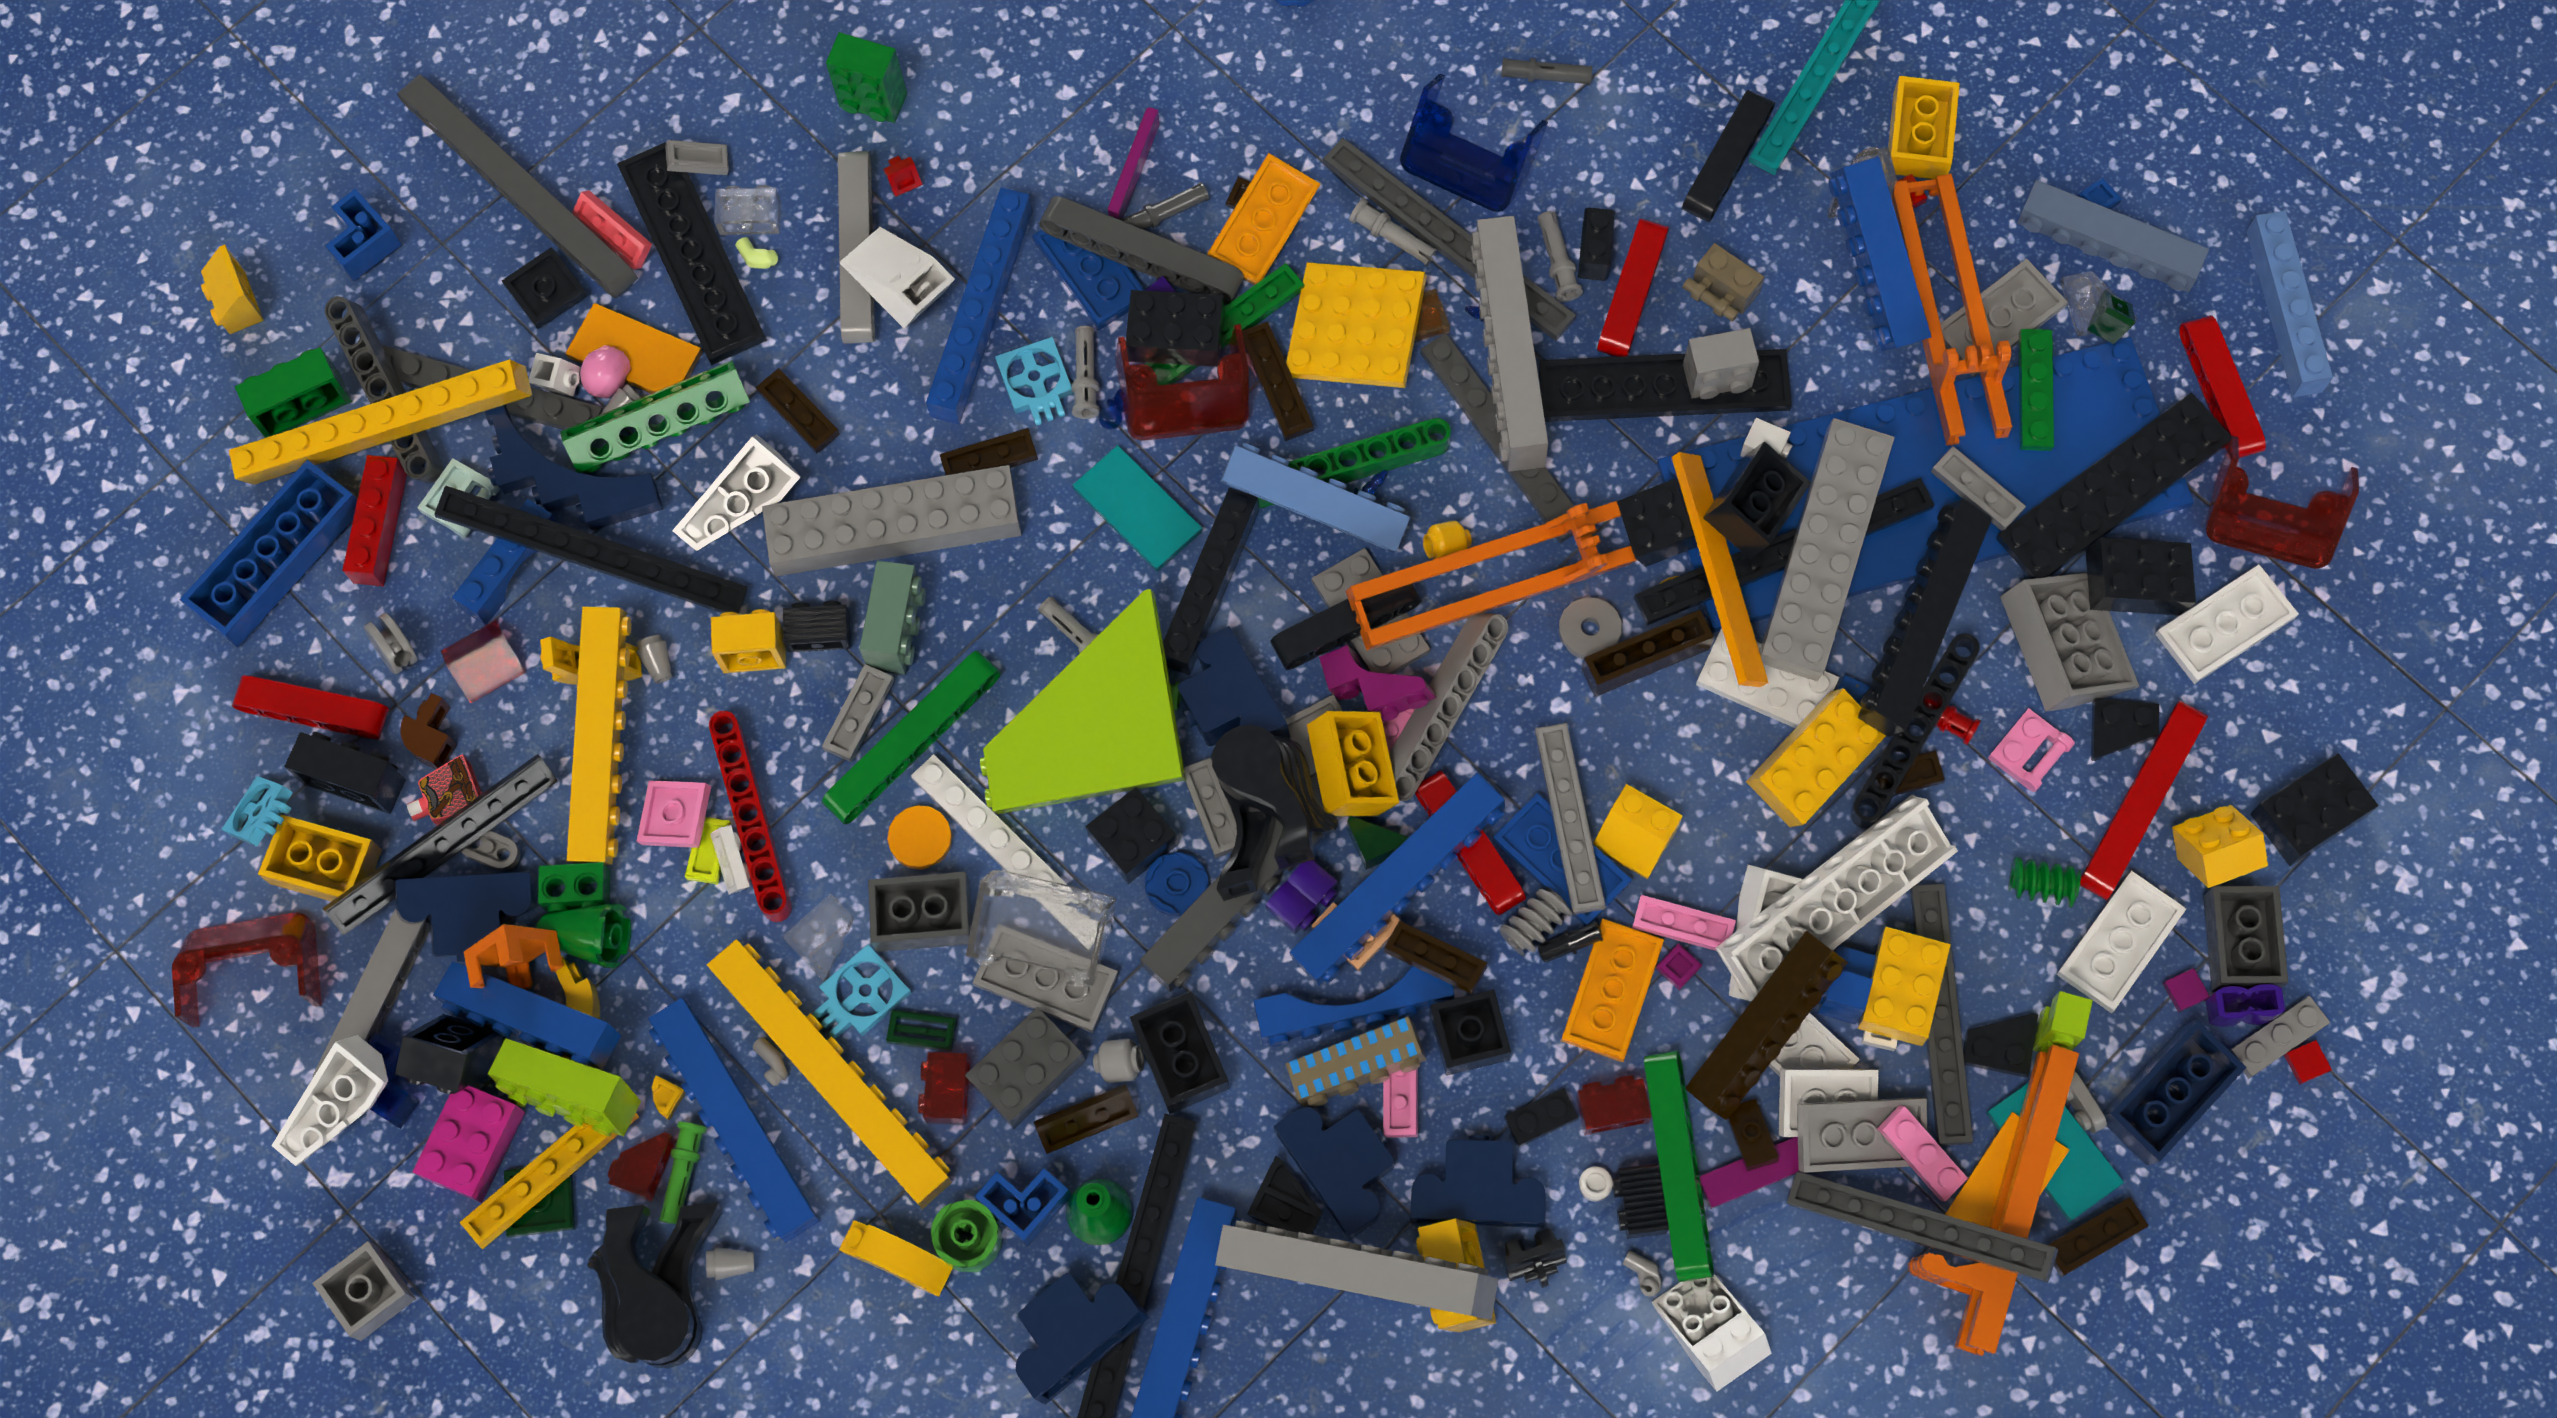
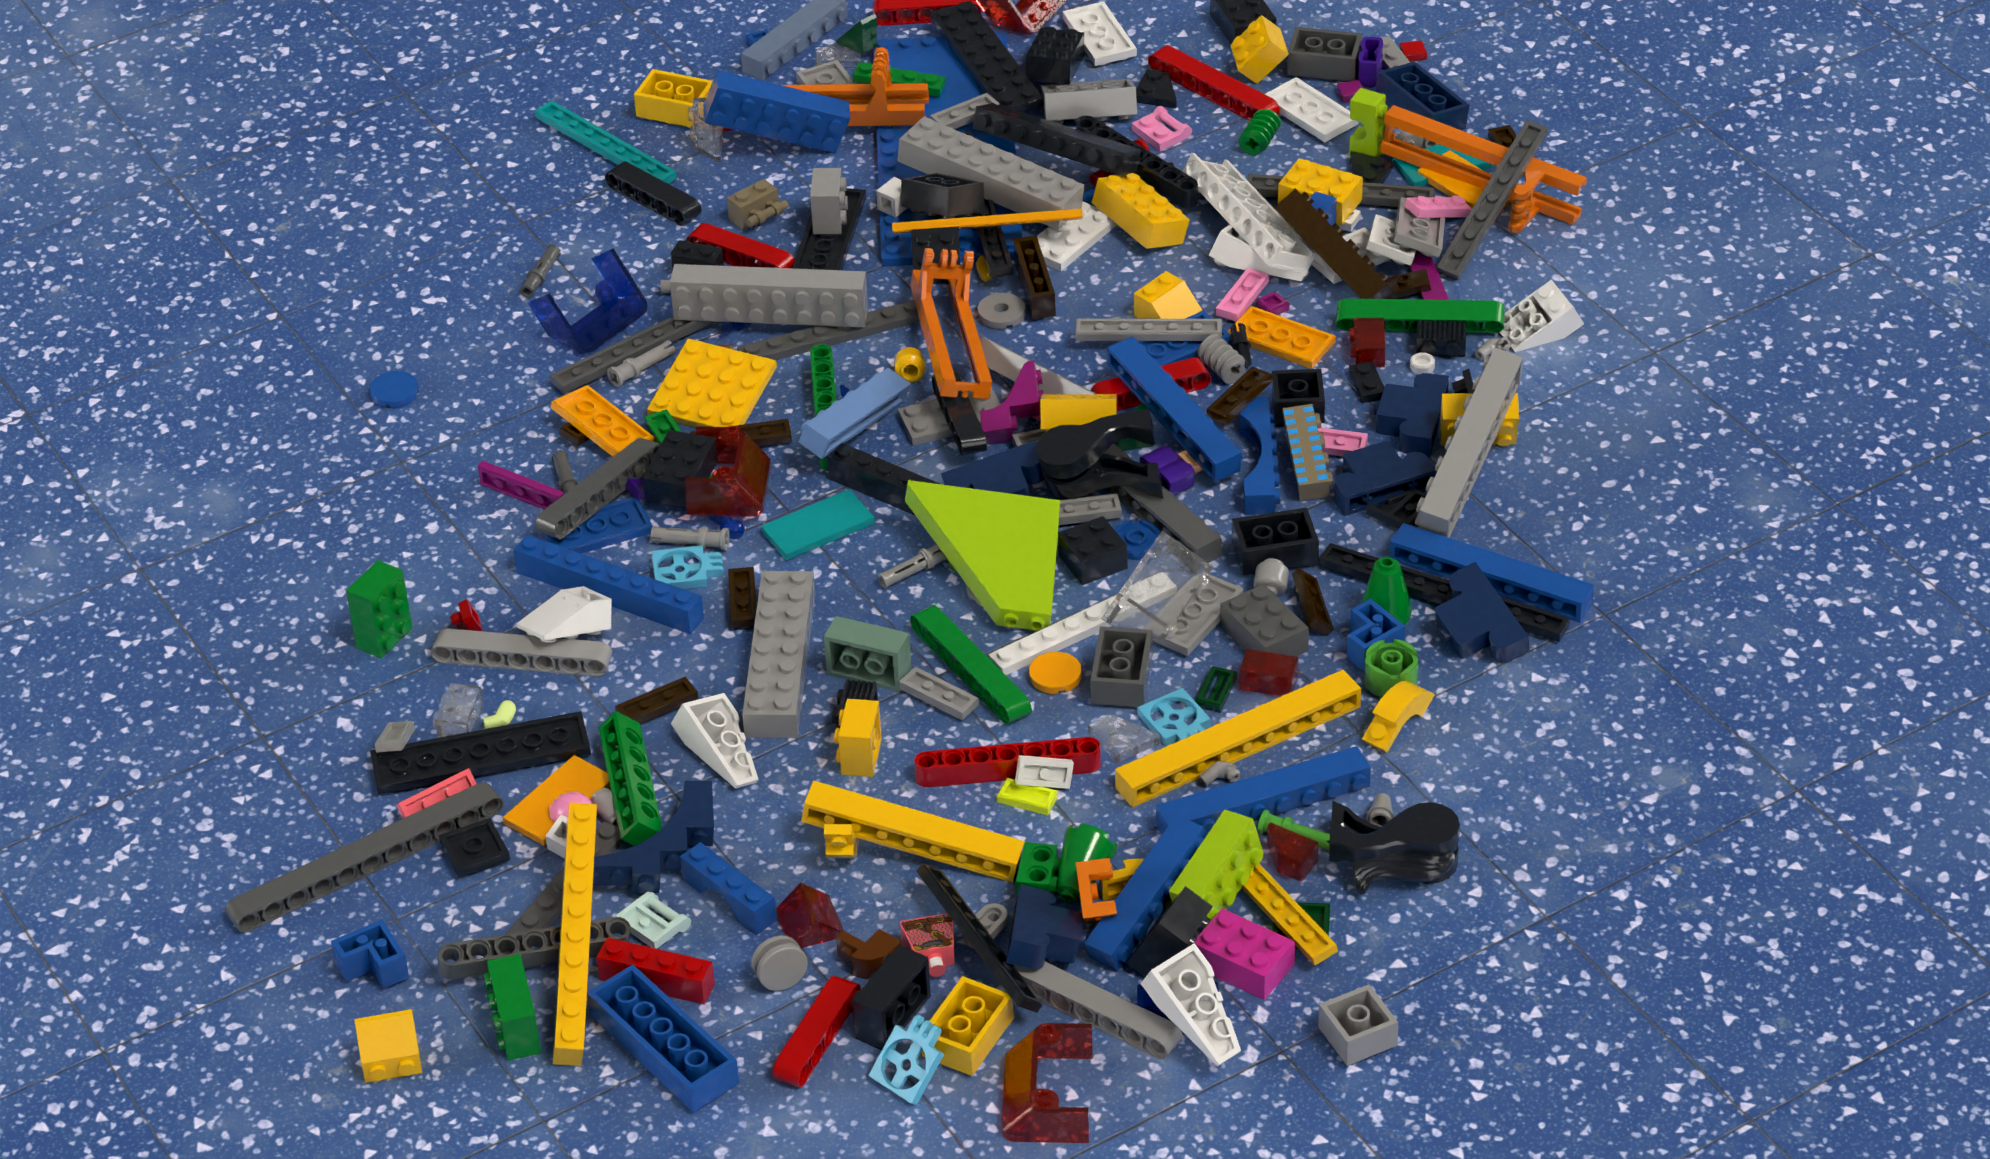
camera: 80 degrees left, 30 degrees down
(590, 551) = (744, 818): black plate -> none
(673, 814) = (993, 804): bright pink plate -> none

